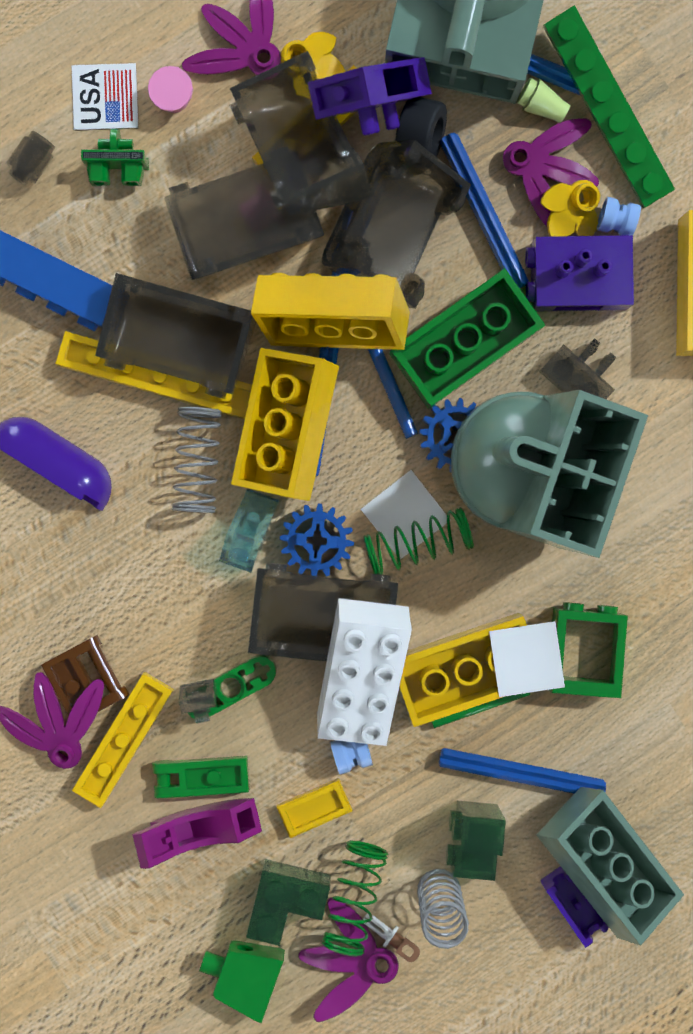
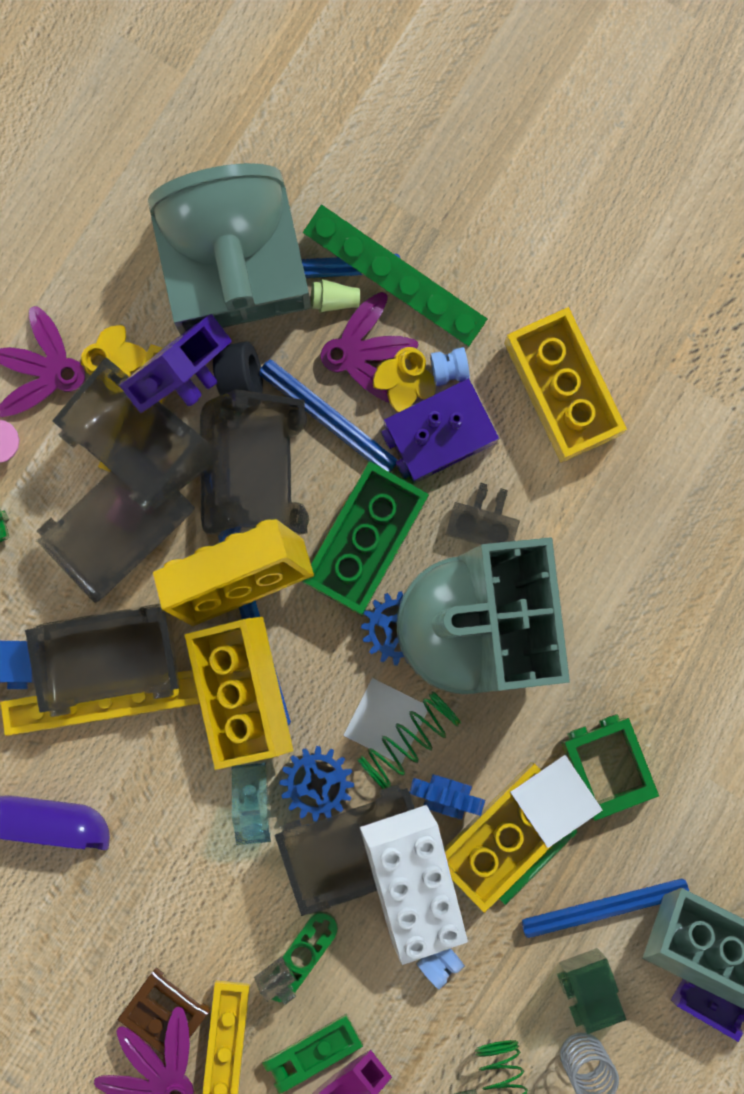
camera: 25 degrees left, 5 degrees down
(187, 412) = (147, 723): light grey piece -> none
(314, 808) = (431, 1032): yellow tile -> none
(393, 392) = (324, 616): blue bar -> none
(429, 608) = (447, 796): none -> blue gear

